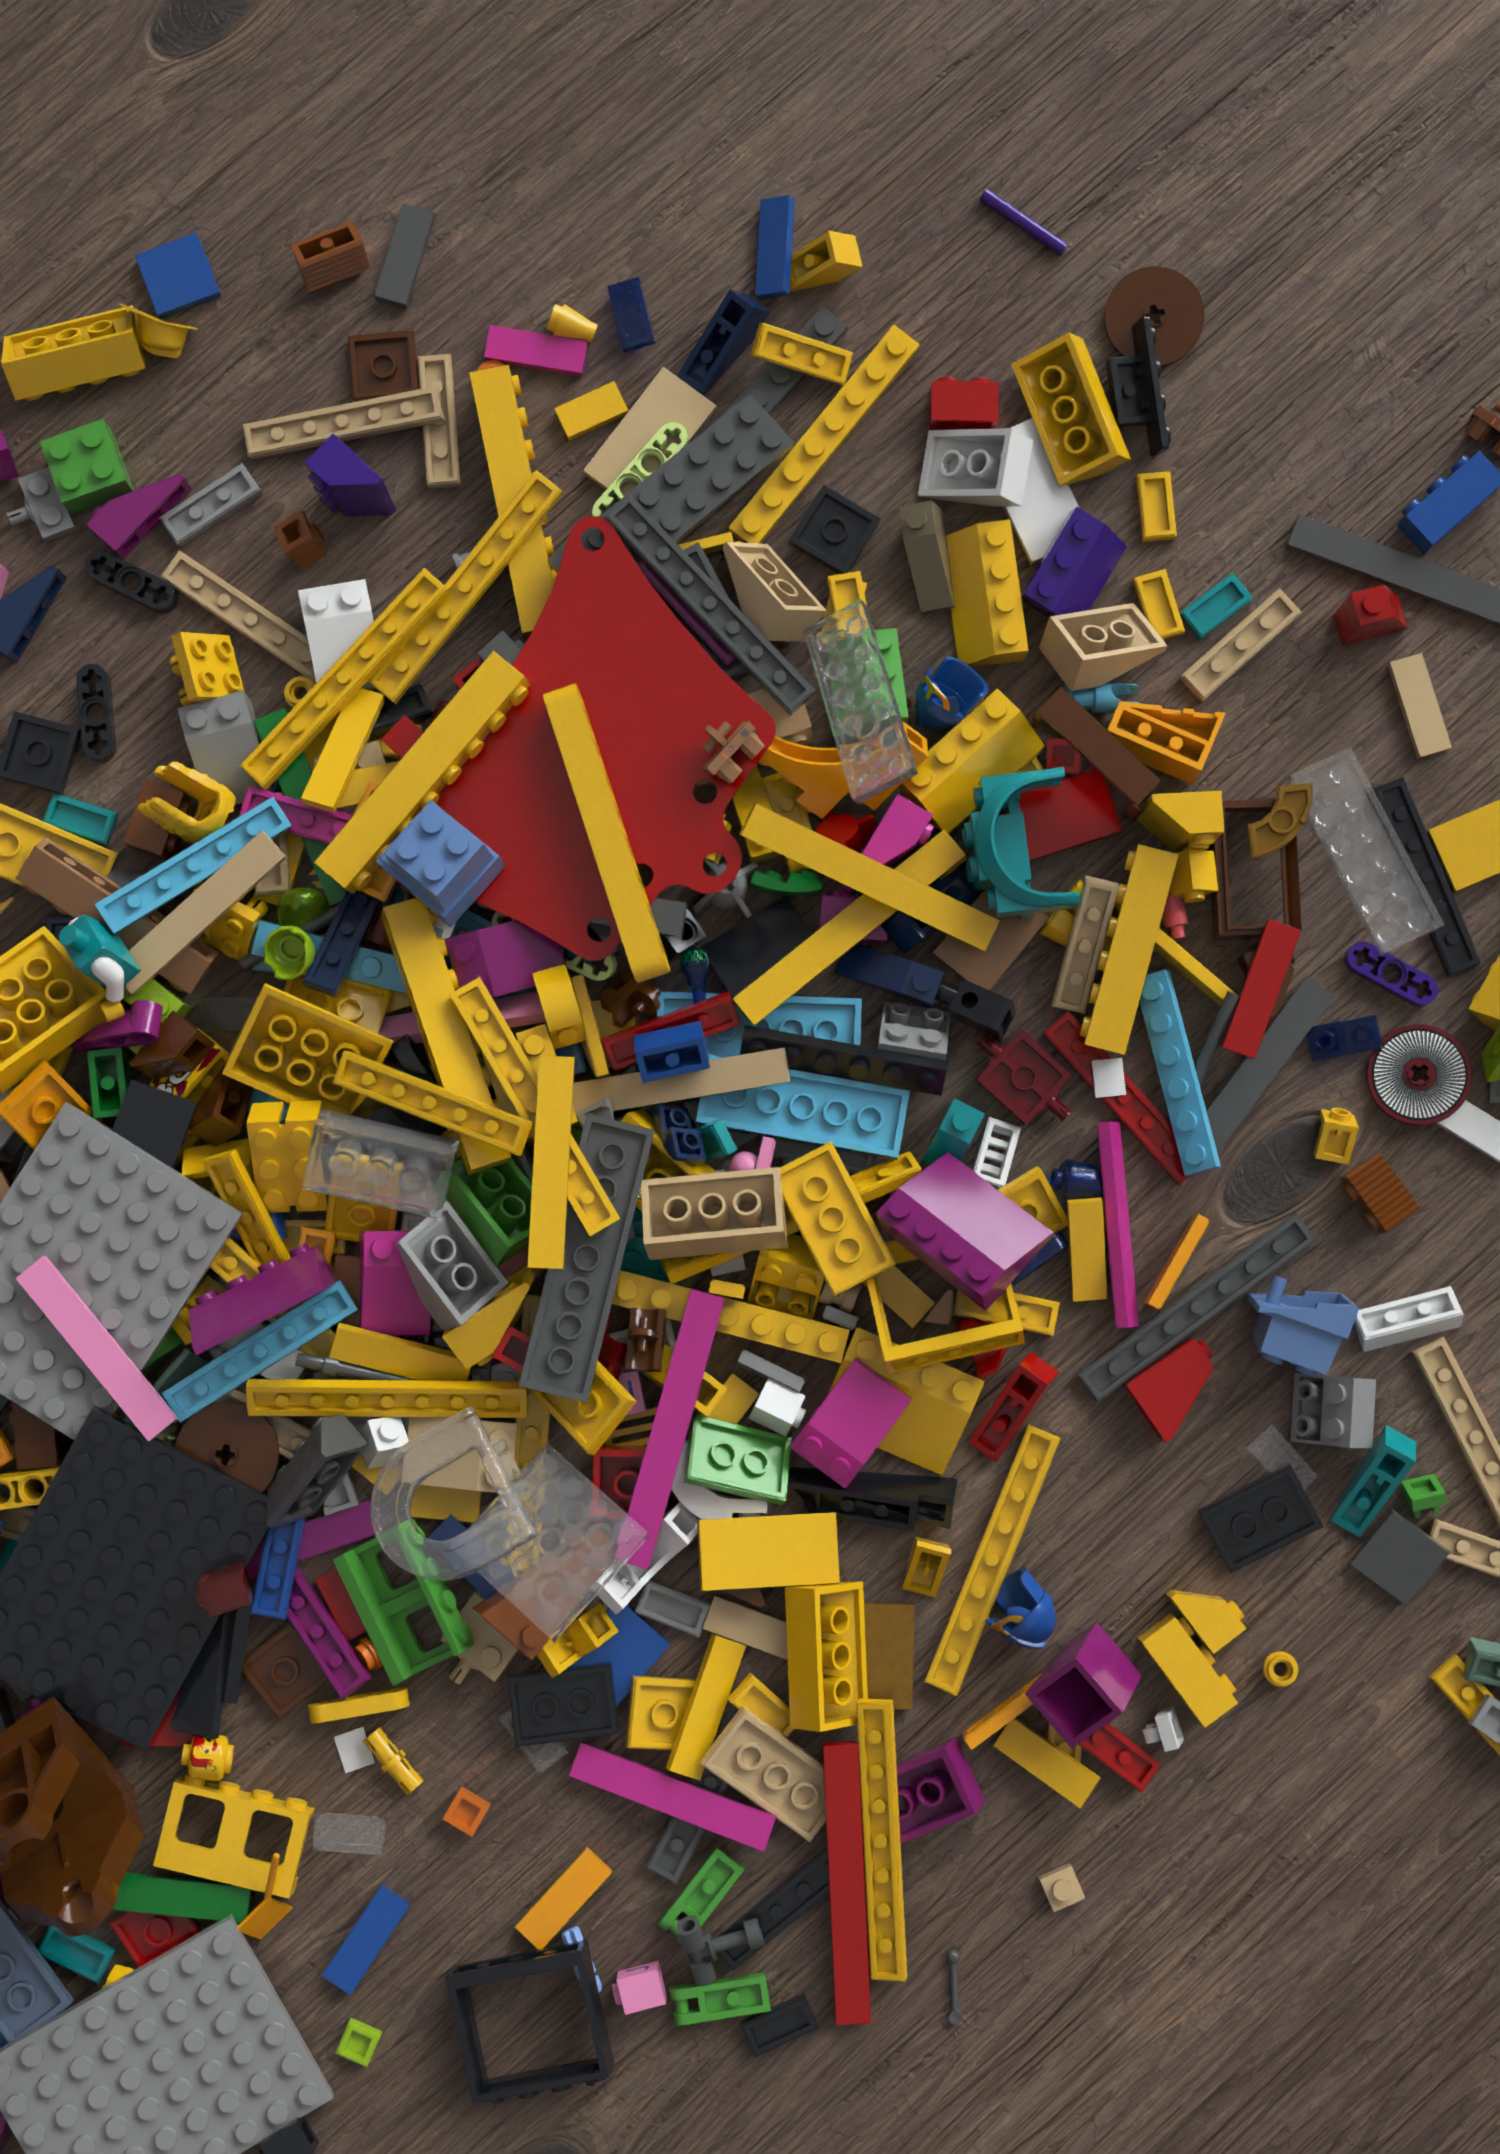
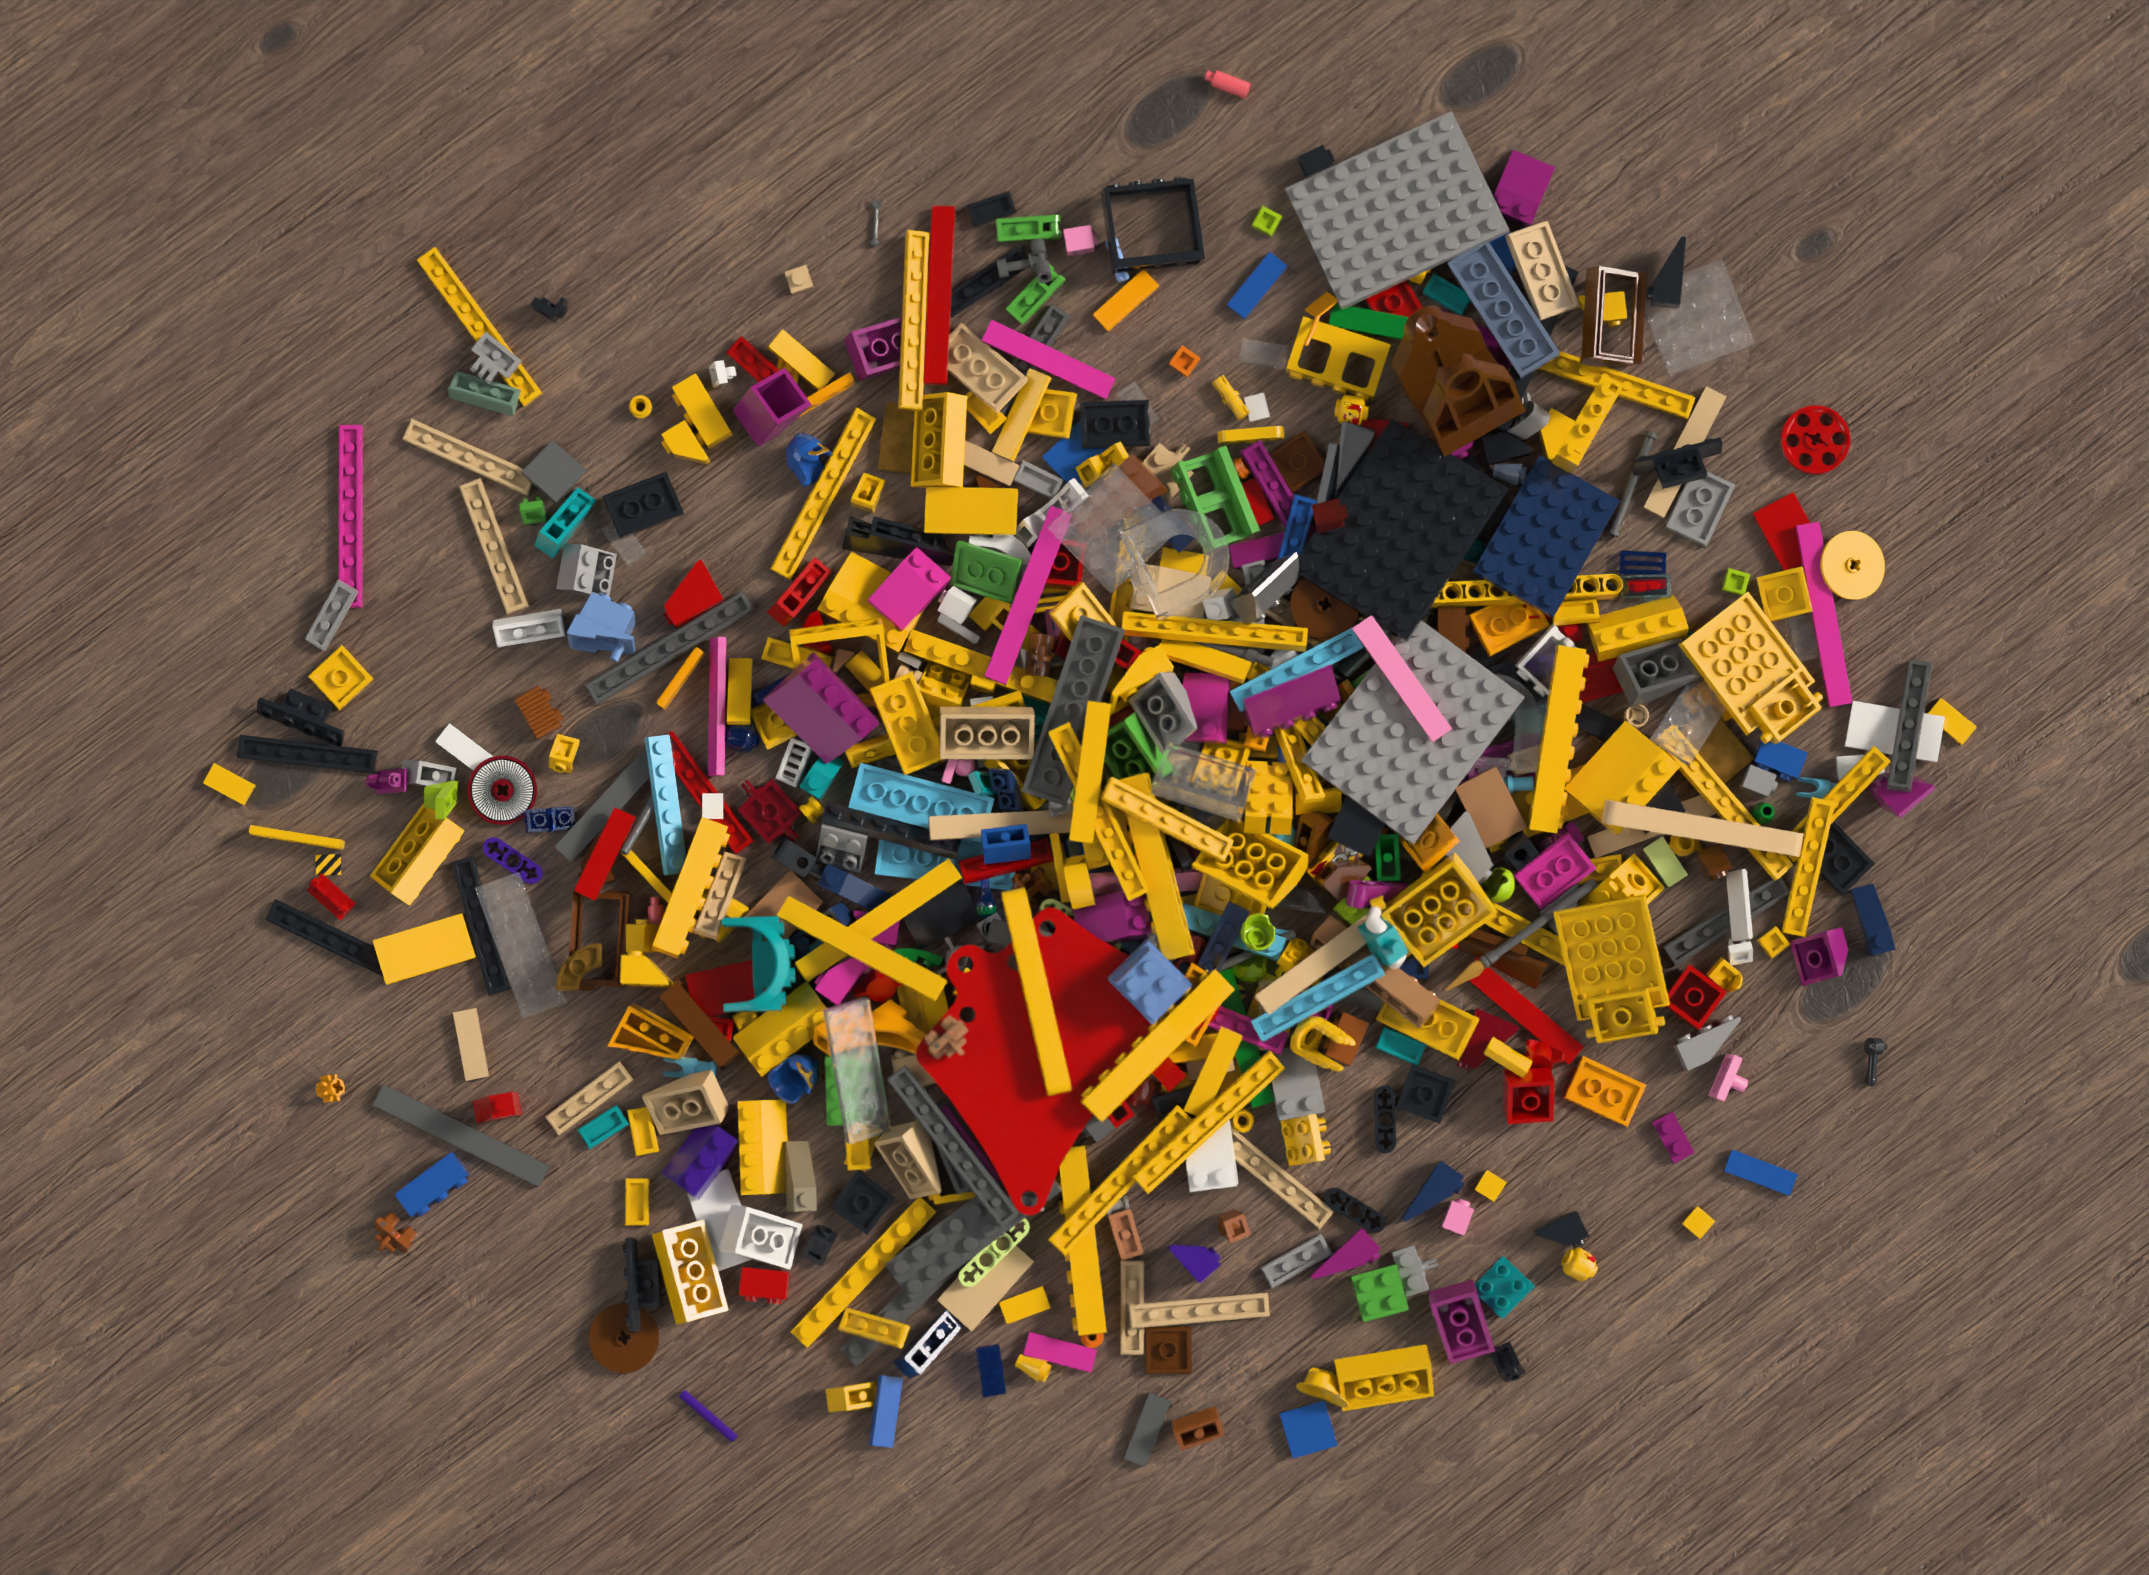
camera: 175 degrees left, 0 degrees up
(454, 518) = (1125, 1234): none -> nougat plate
(889, 468) = (820, 1244): none -> black bracket
(962, 1083) = (812, 810): none -> yellow wheel
(1440, 1808) = (546, 308): none -> black bracket

